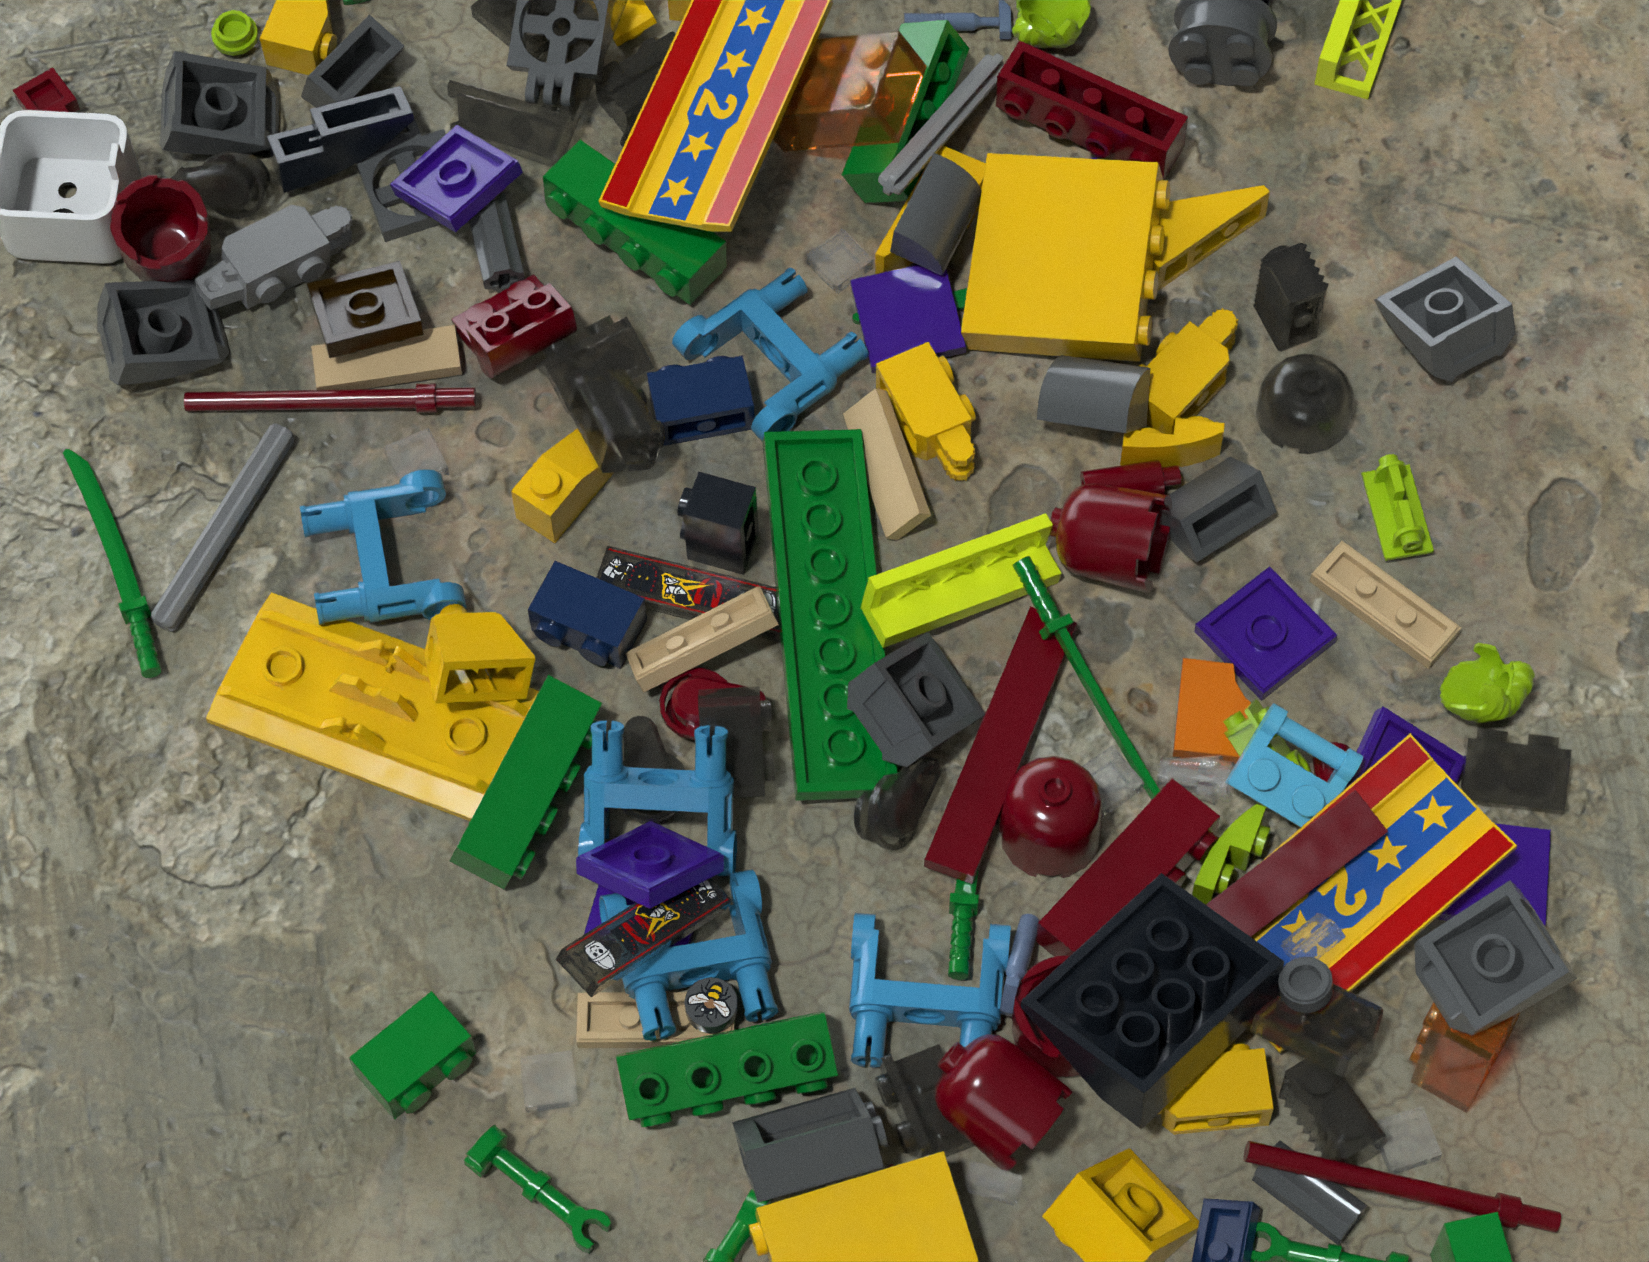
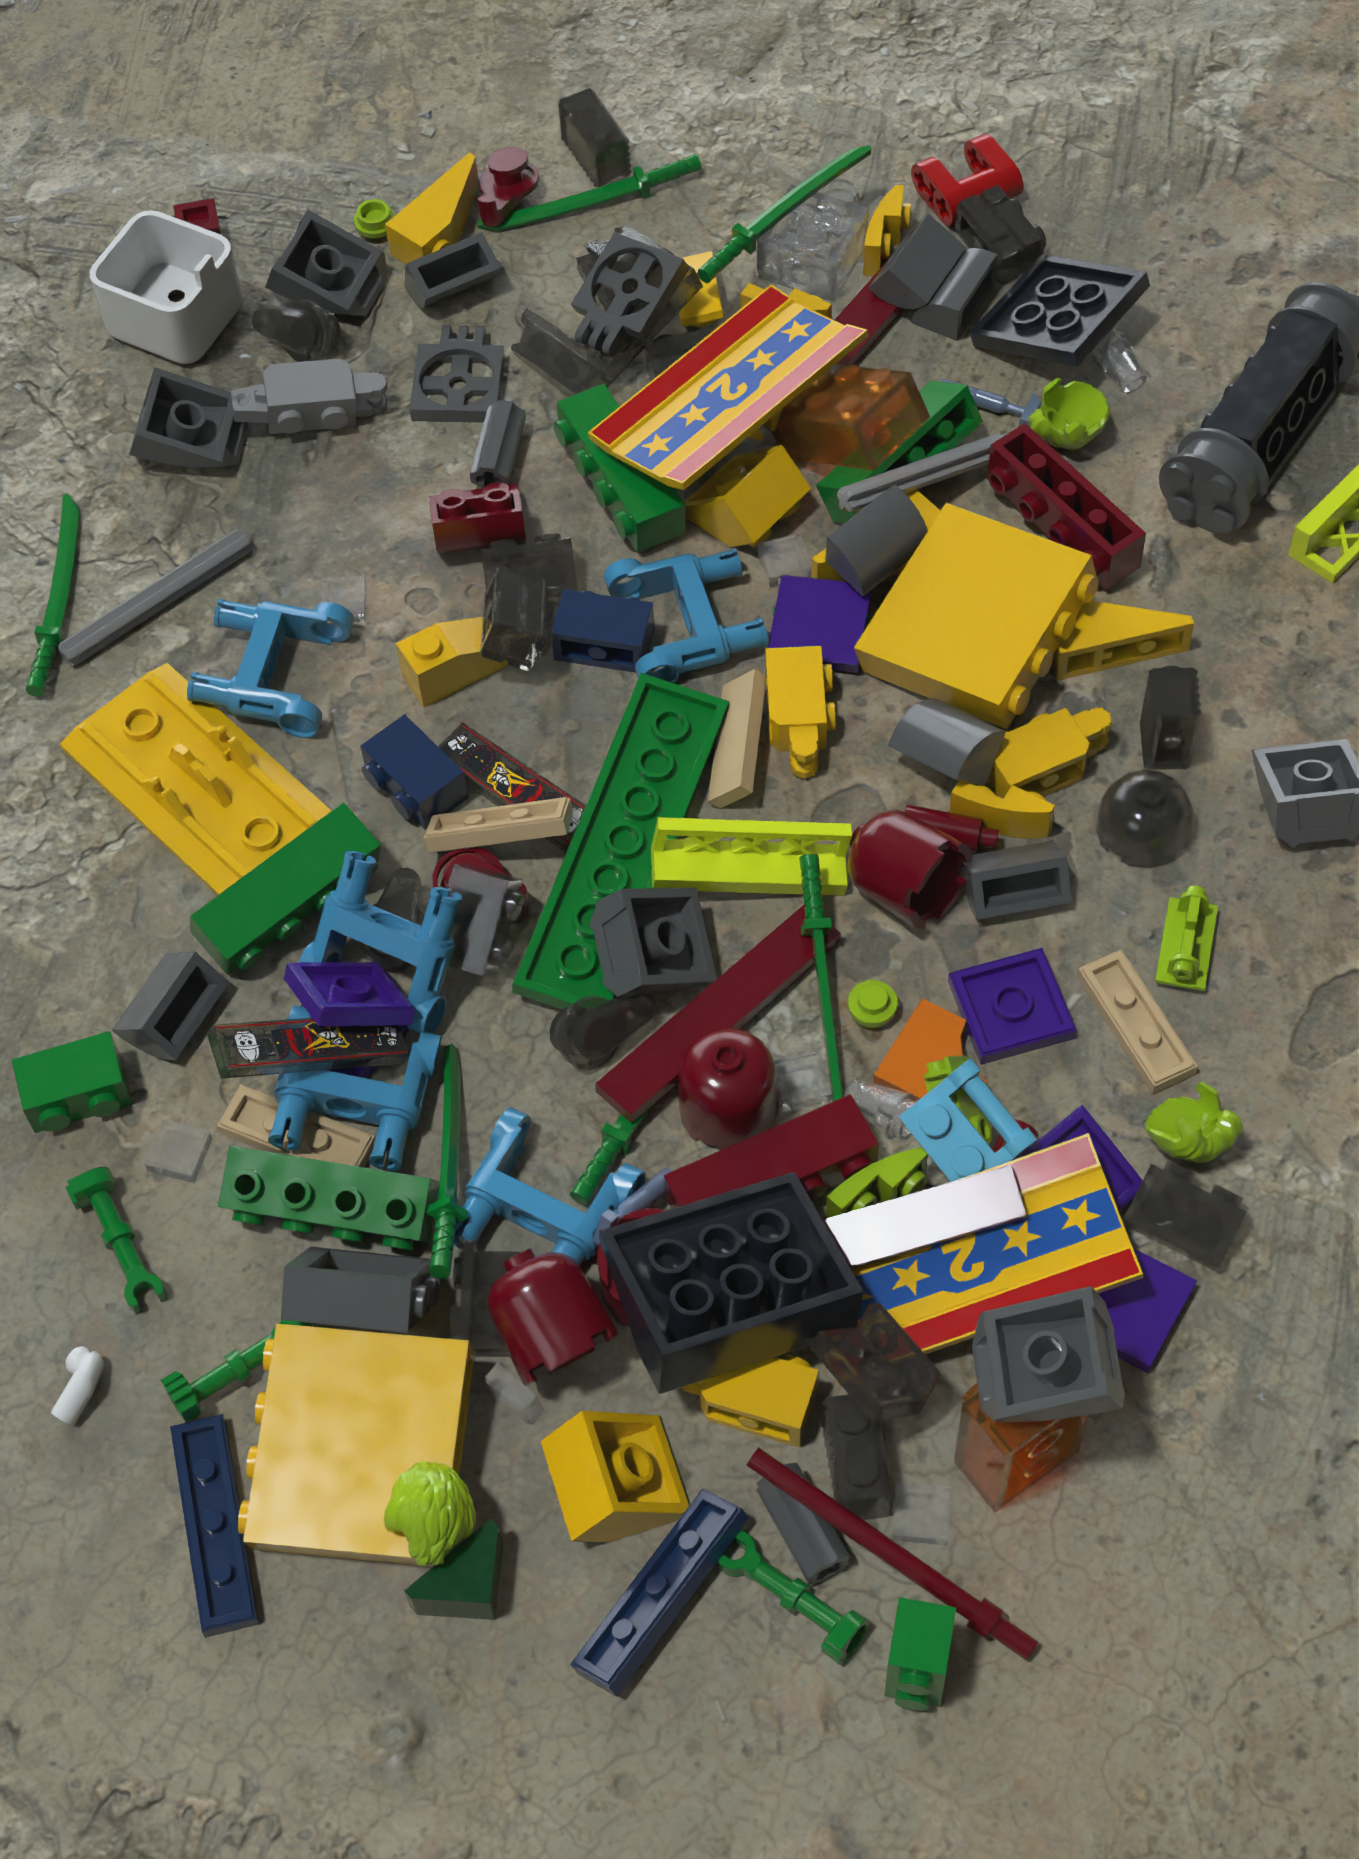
camera: 25 degrees right, 5 degrees down
(161, 229) = (219, 340): dark red cylinder -> none
(338, 137) = (409, 321): black slope -> none
(365, 309) = (359, 463): dark brown plate -> none
(394, 363) = (360, 511): tan tile -> none
(424, 398) = (373, 551): dark red bar -> none
(456, 178) = (487, 383): dark purple tile -> none
(467, 941) = (171, 1005): none -> dark grey brick
(476, 657) = (295, 769): yellow torso -> none
(711, 1005) = (344, 1137): tile -> none
(719, 522) = (561, 732): black brick -> none
(781, 209) = (748, 497): none -> yellow slope
(849, 1036) = (446, 1209): none -> green sword
(1138, 680) = (872, 1003): none -> lime plate
(1306, 984) = (877, 1323): dark grey tile -> none
(1313, 938) = (909, 1288): clear tile -> none

